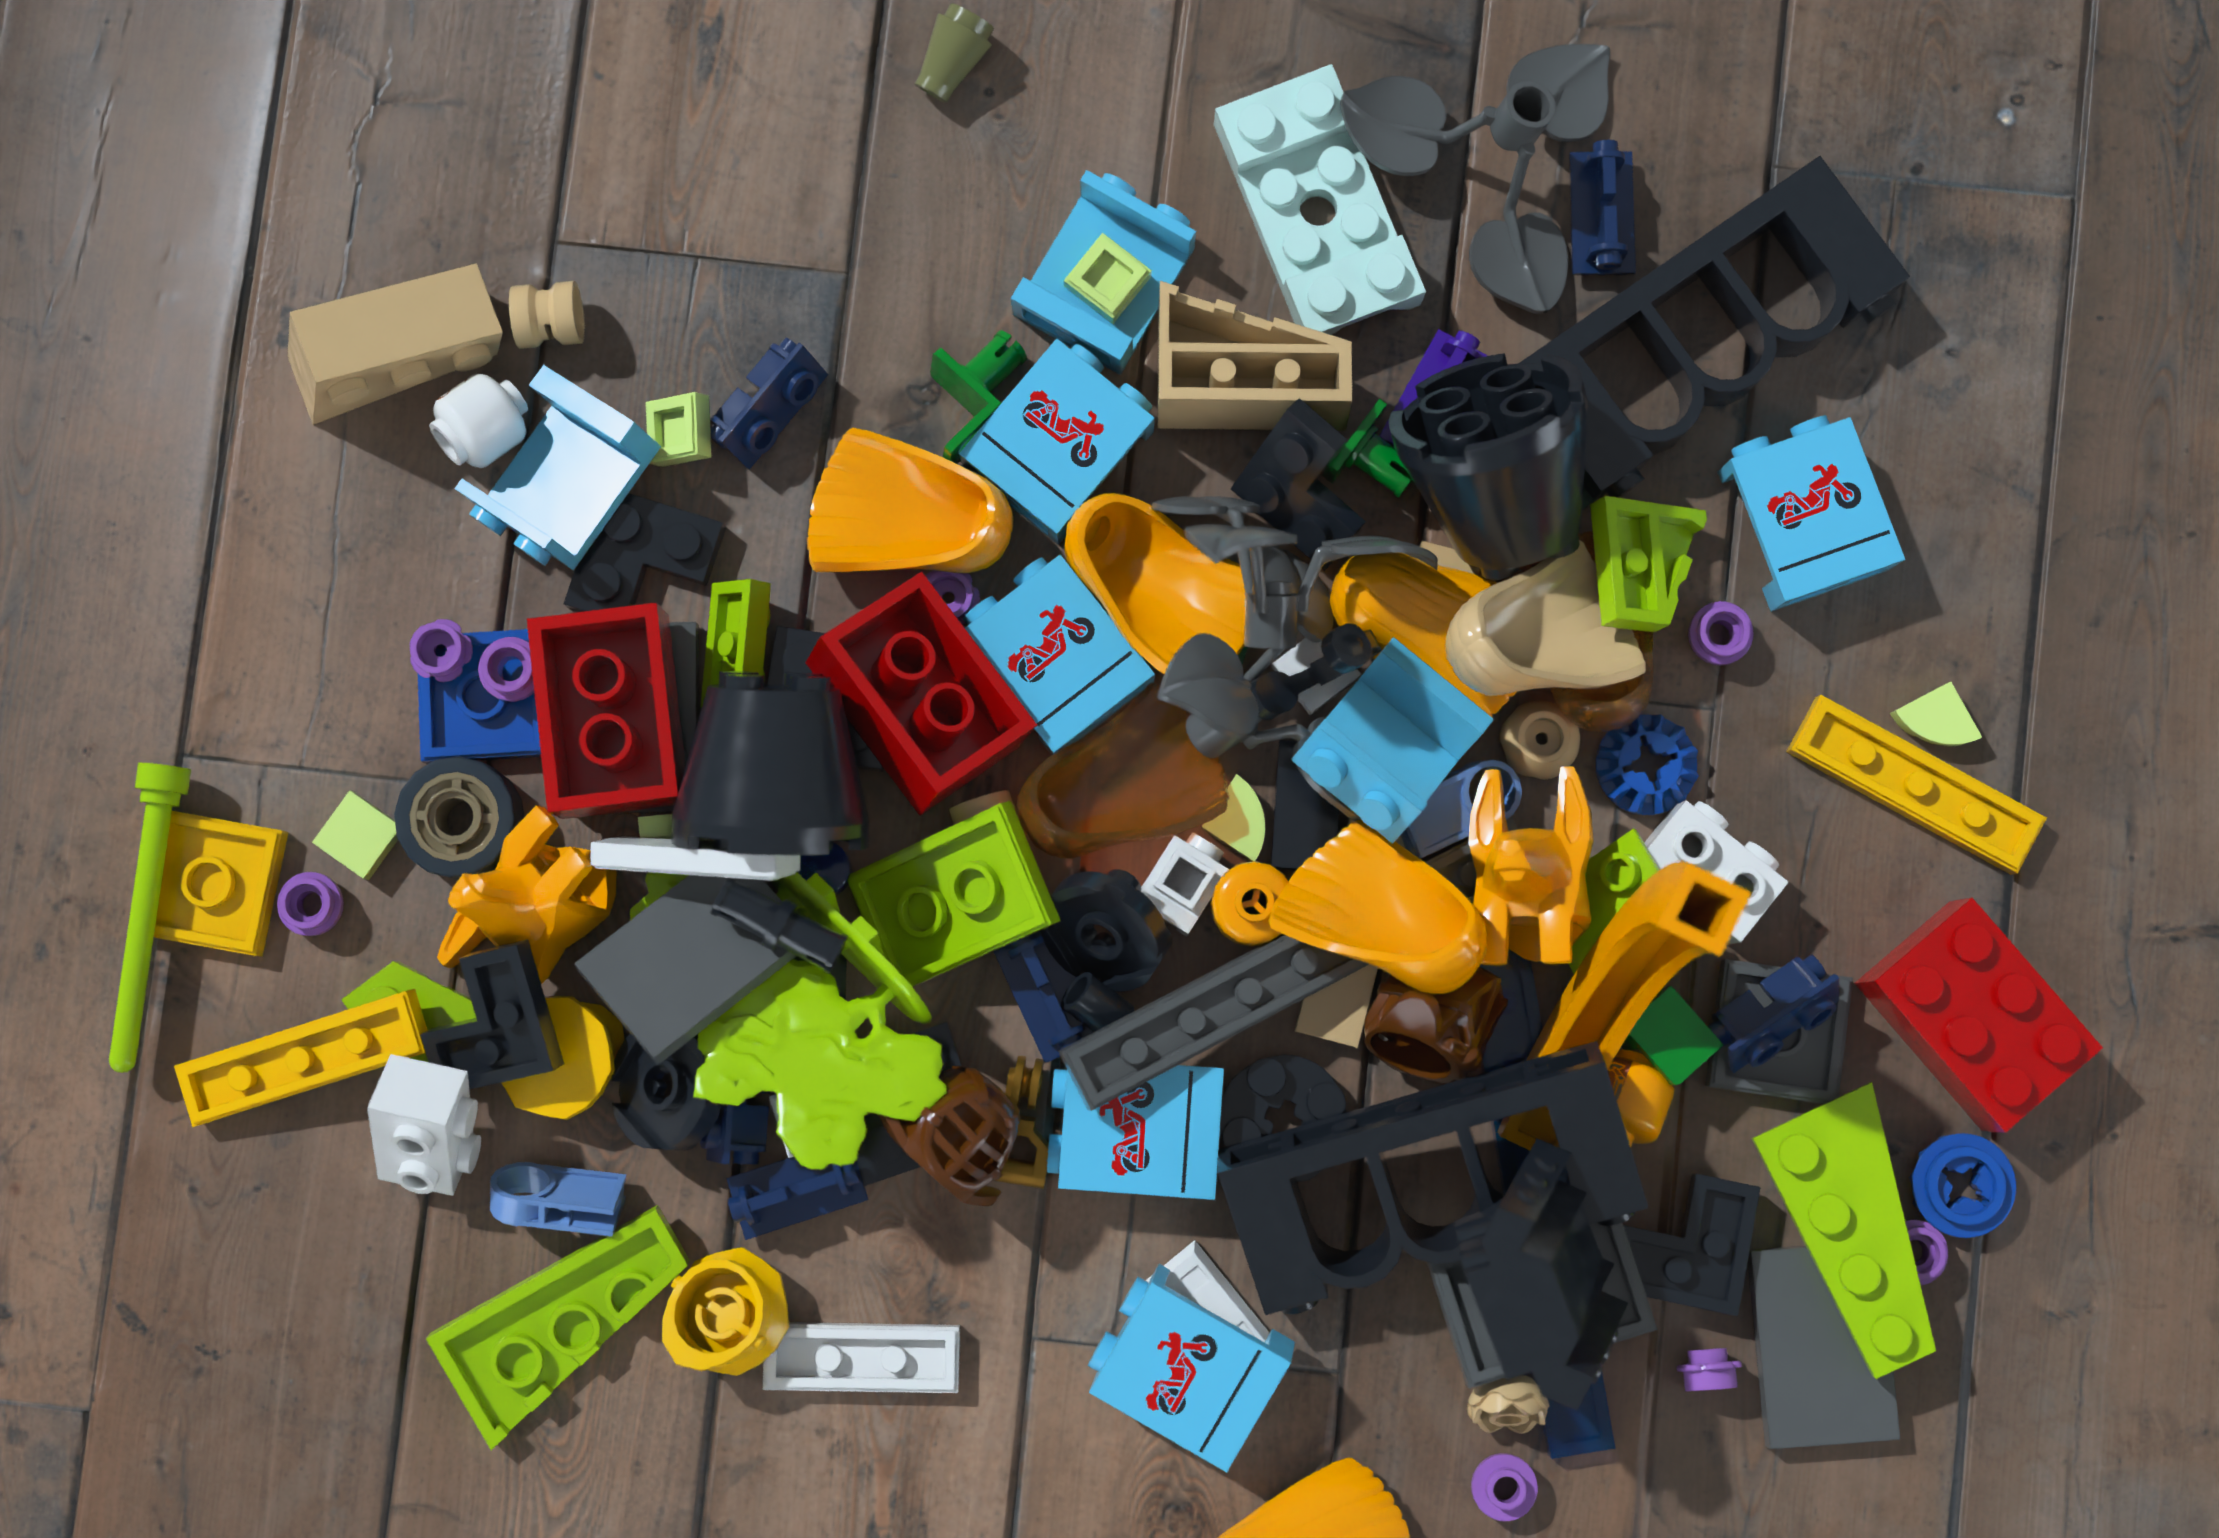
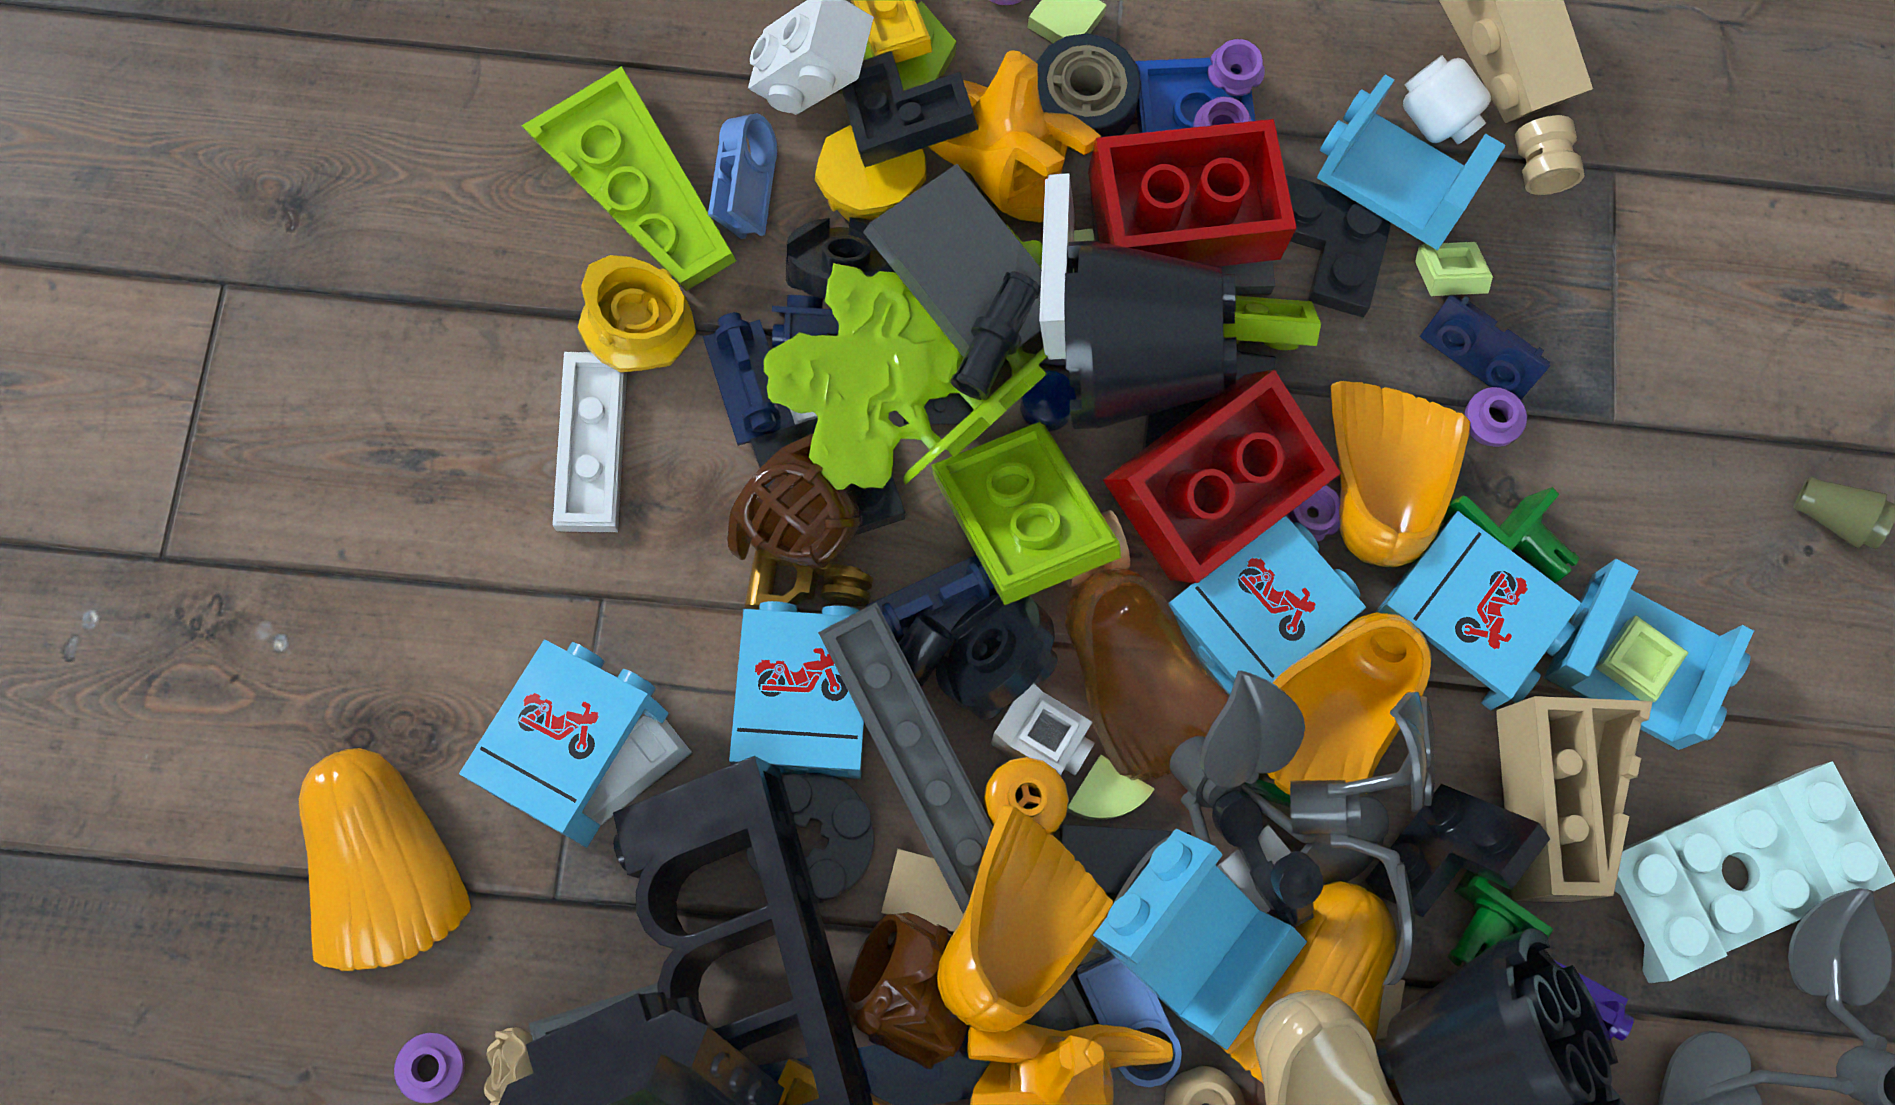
camera: 80 degrees right, 10 degrees down
(845, 418) = (1485, 428): none -> medium lavender plate

